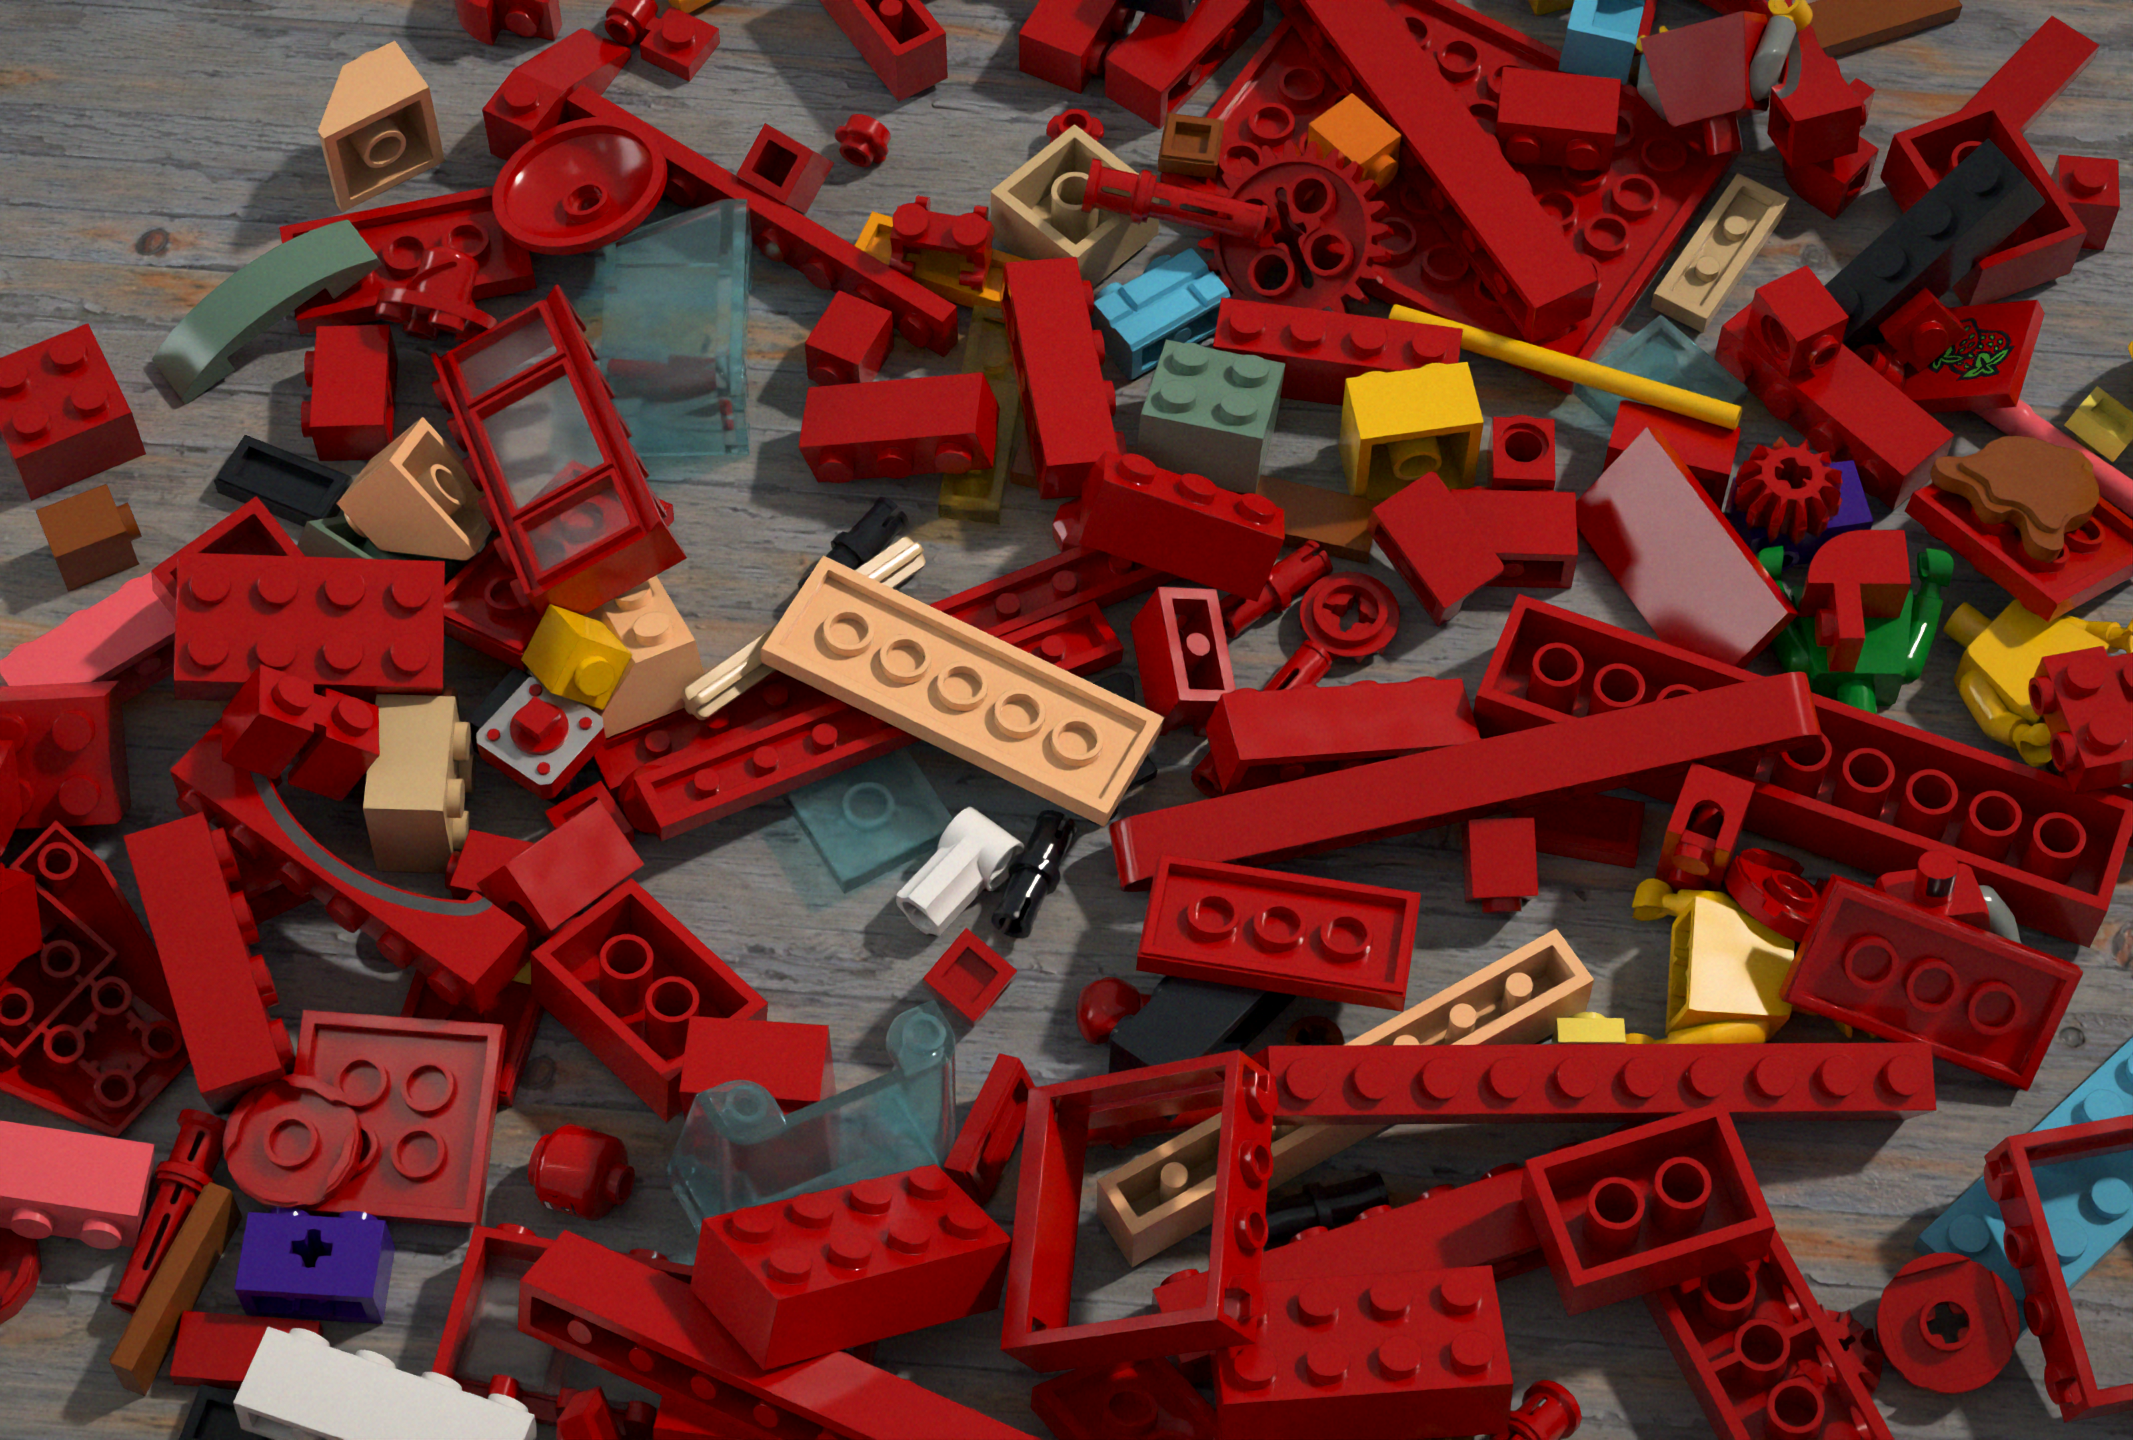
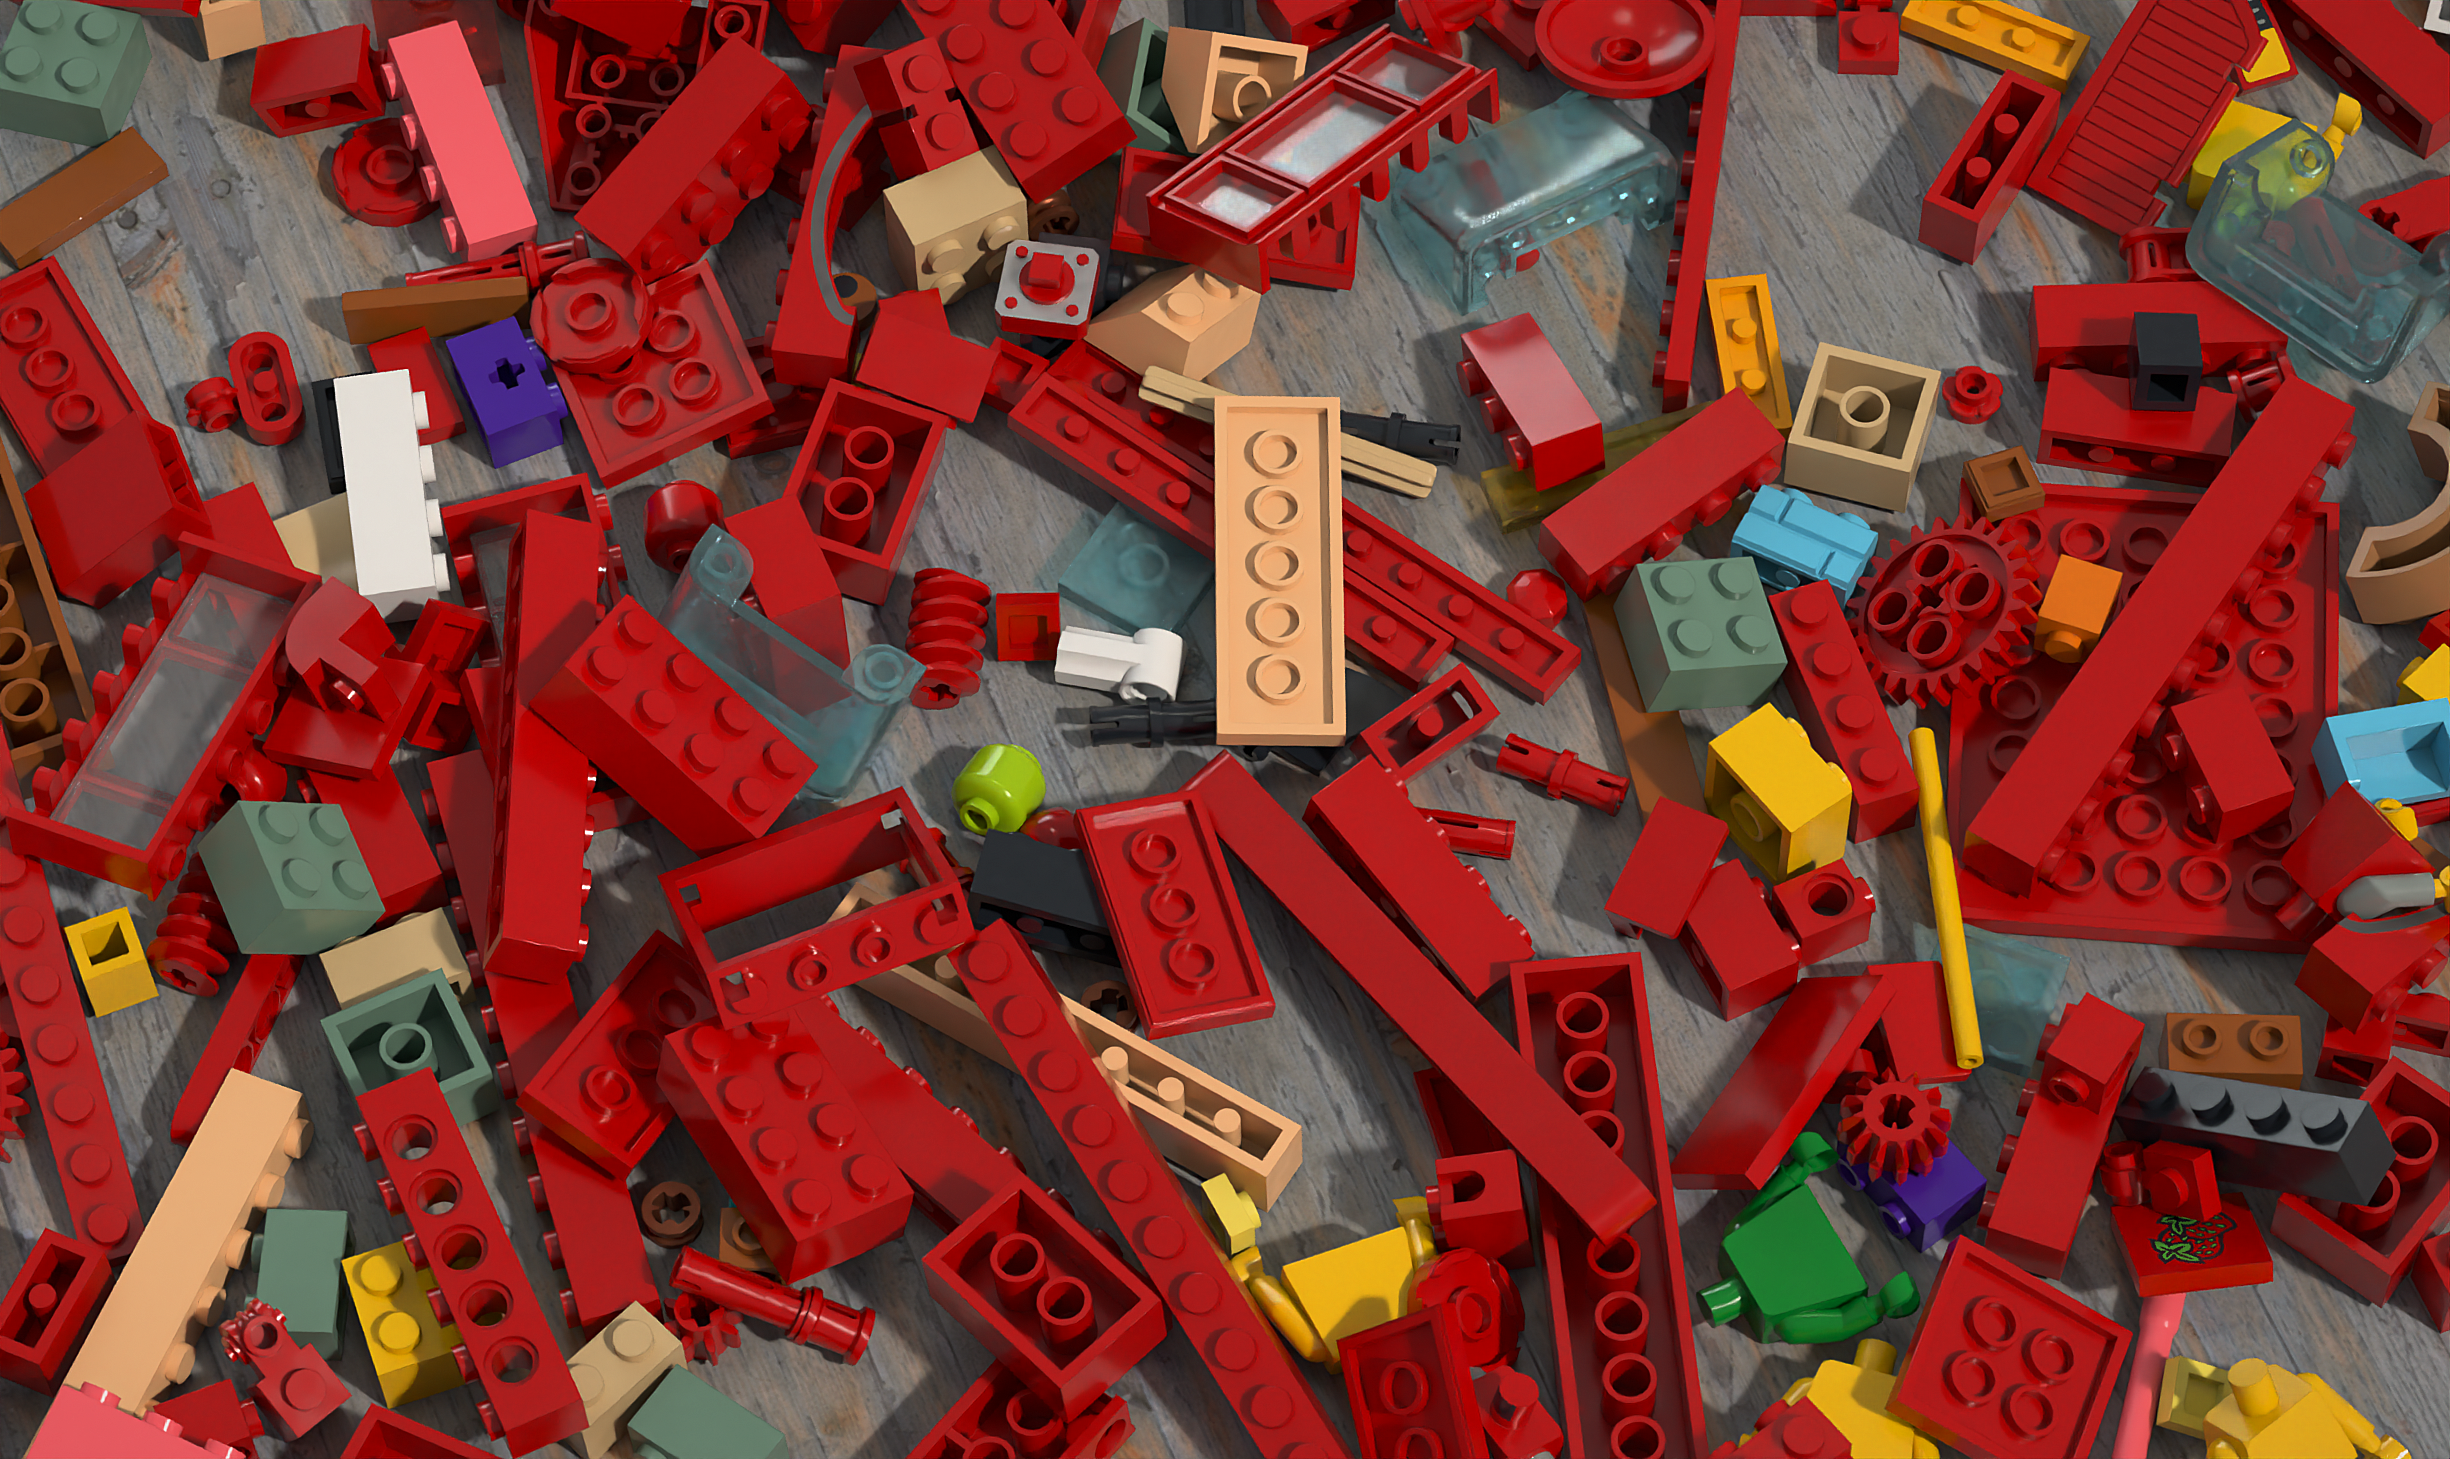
camera: 65 degrees right, 0 degrees up
(576, 657) = (1130, 271): yellow brick -> none
(785, 168) = (1759, 182): red brick -> none
(840, 999) = (947, 635): none -> red piece
(849, 342) = (1608, 327): red brick -> none
(863, 140) = (1847, 232): red plate -> none
(872, 927) = (1028, 626): none -> red tile
(965, 235) = (1748, 327): red piece -> none
(969, 978) = (1011, 710): red brick -> none
(990, 1130) = (926, 787): red tile -> none
(1037, 1027) = (998, 789): none -> lime head
(1180, 524) = (1538, 650): red slope -> none
(1247, 217) = (1877, 458): red pin -> none
(1324, 1206) = (951, 1078): black pin -> none
(1333, 598) = (1589, 829): red gear -> none
(1499, 863) = (1368, 1069): red brick -> none
(1720, 252) = (2188, 980): tan plate -> none
(1821, 235) = (2234, 1047): none -> dark orange brick
(1852, 580) = (1822, 1214): red brick -> none
(2026, 484) = (2042, 1340): dark orange tile -> none

